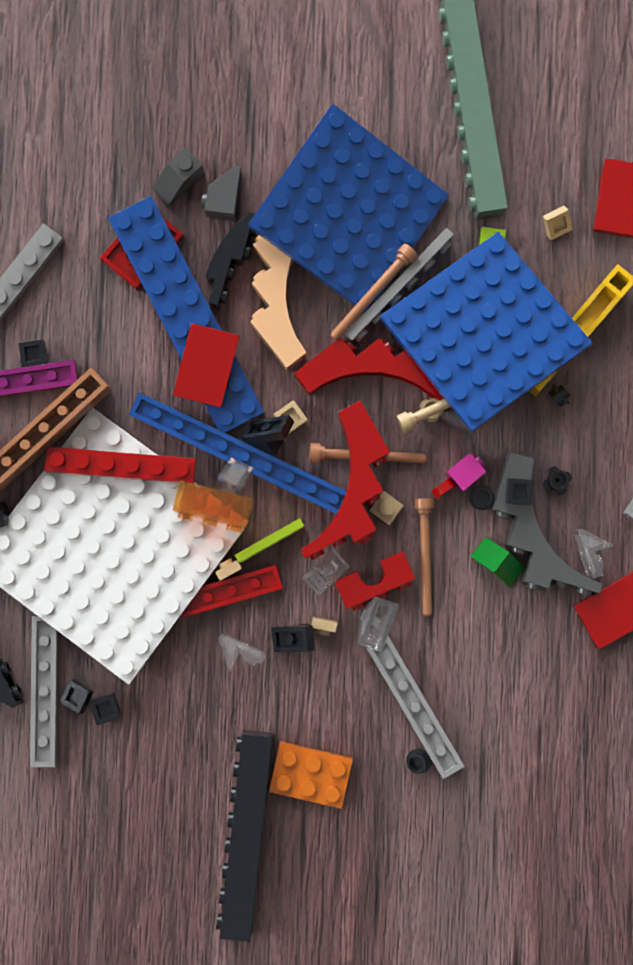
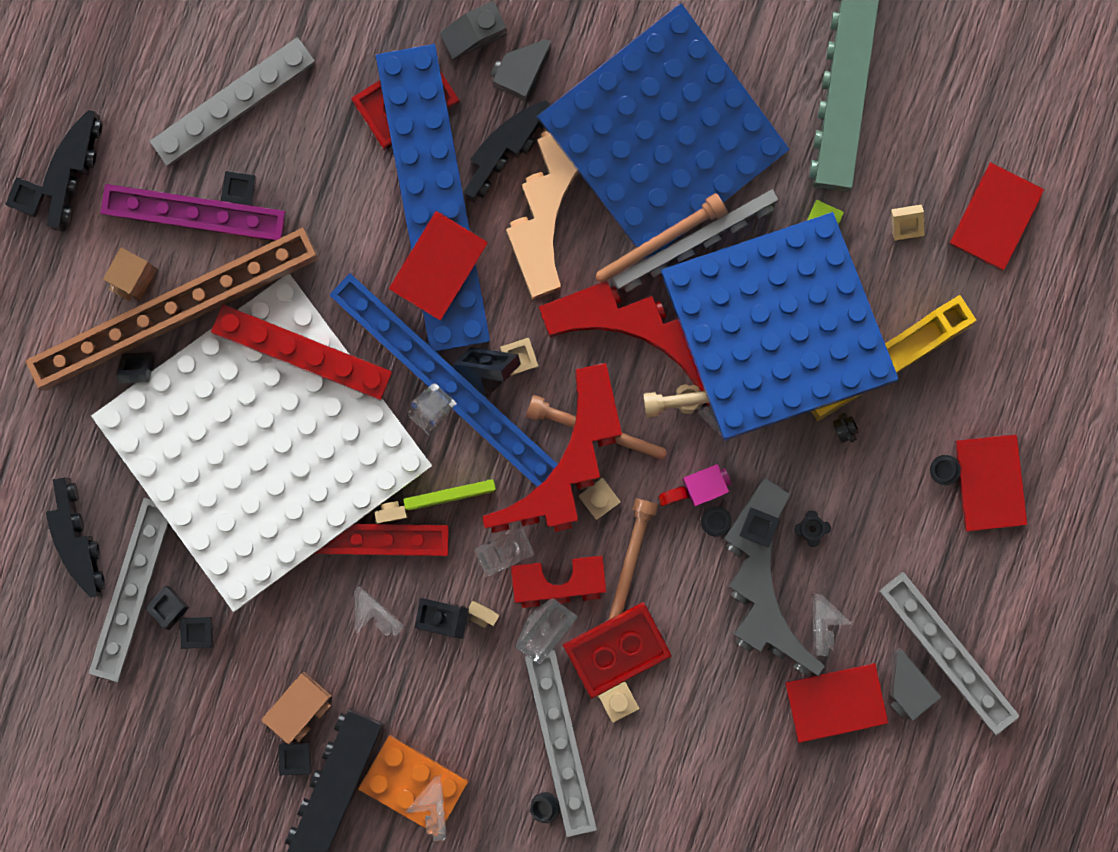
camera: 20 degrees right, 0 degrees up
(201, 743) = (297, 708): none -> nougat brick
(212, 783) = (294, 759): none -> black plate
(213, 506) = (396, 434): clear orange brick -> none
(329, 785) = (432, 800): none -> clear slope
(436, 621) = (617, 650): none -> red tile
(449, 660) = (618, 702): none -> tan plate
(498, 561) = (711, 603): green slope -> none

